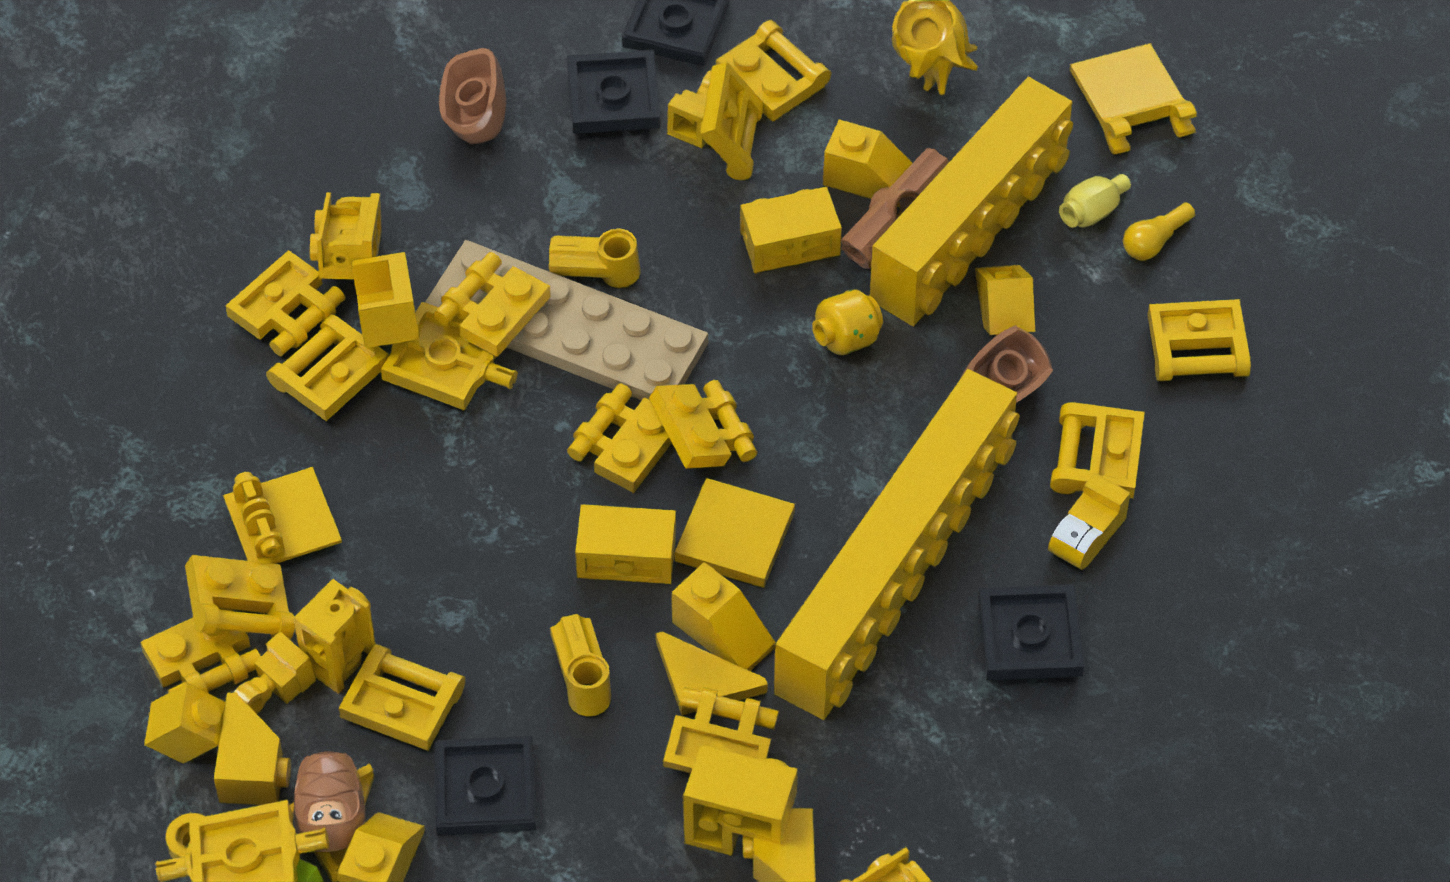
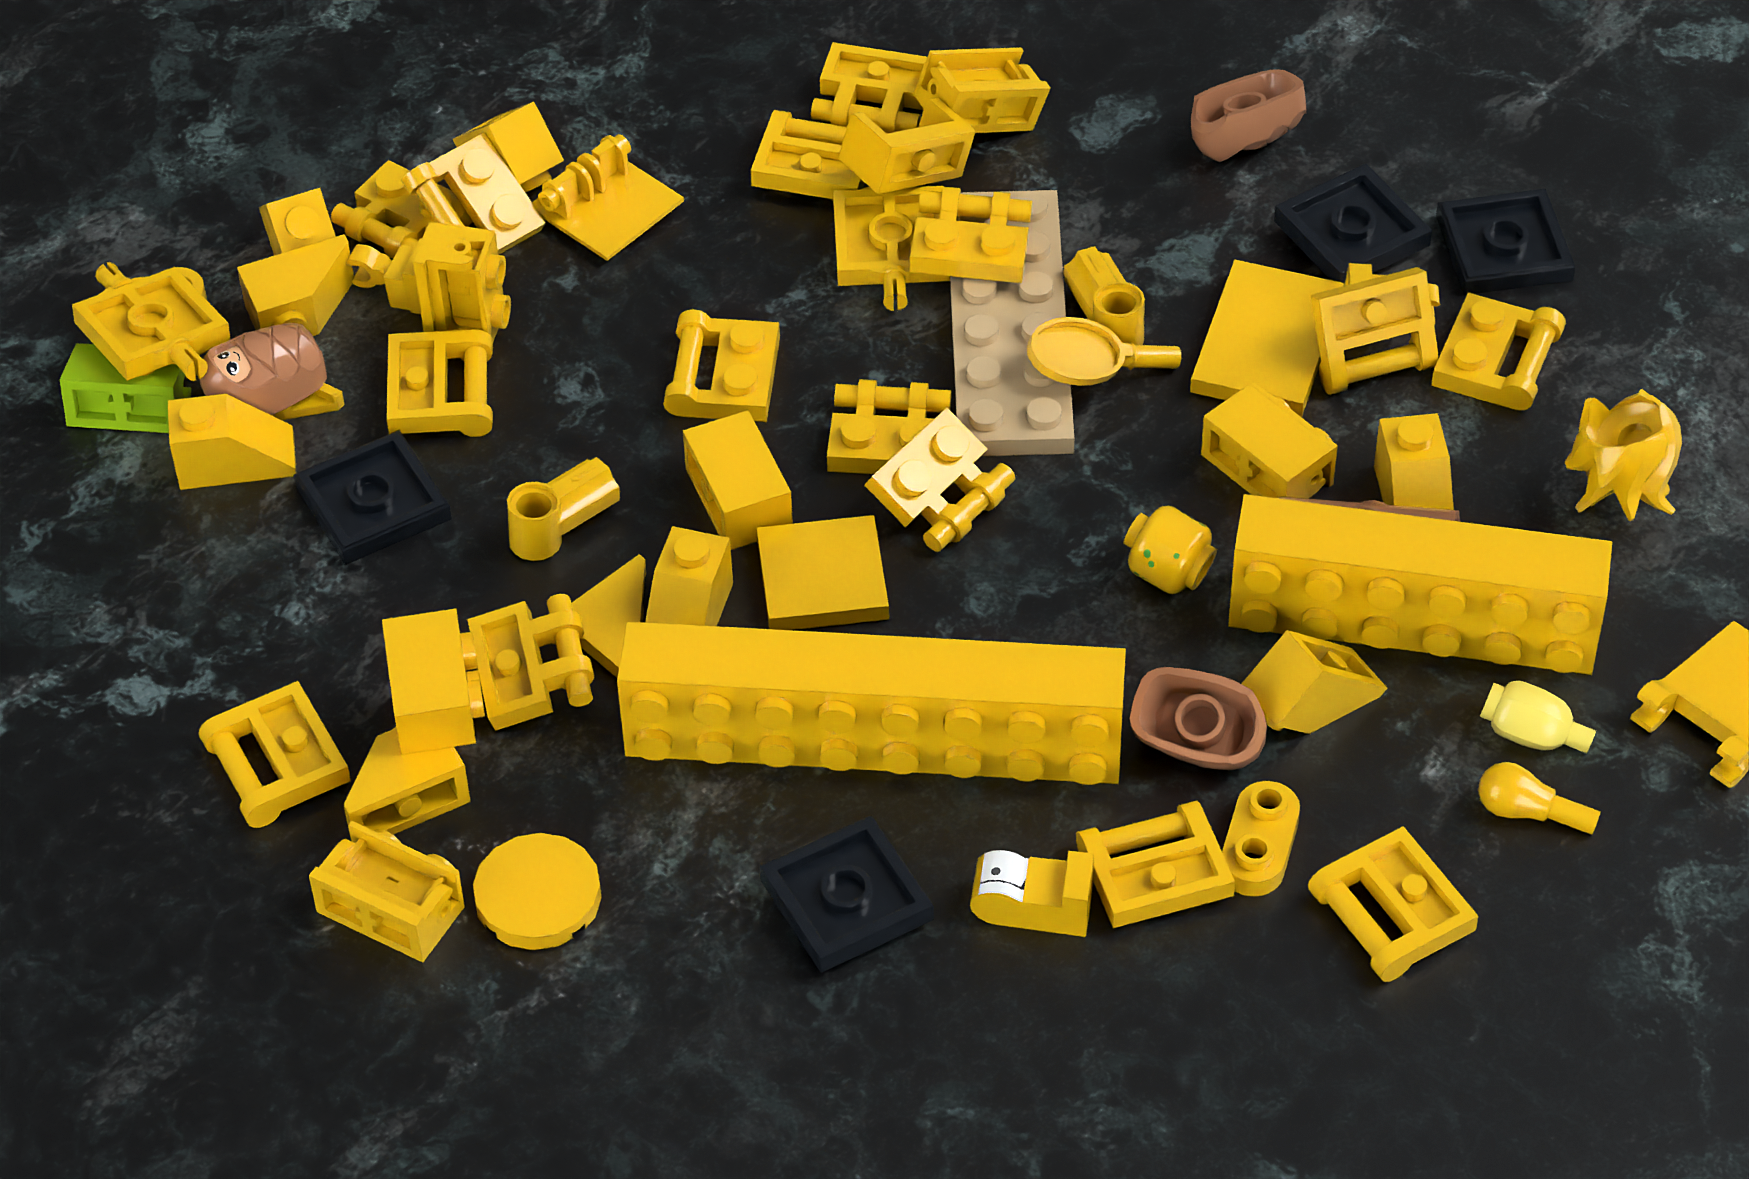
camera: 65 degrees right, 5 degrees down
(162, 560) = (521, 142): none -> yellow slope
(507, 501) = (741, 370): none -> yellow plate
(645, 288) = (1090, 353): none -> yellow piece
(678, 186) = (1262, 335): none -> yellow tile
(924, 815) = (537, 890): none -> yellow tile
(1103, 383) = (1262, 833): none -> yellow plate

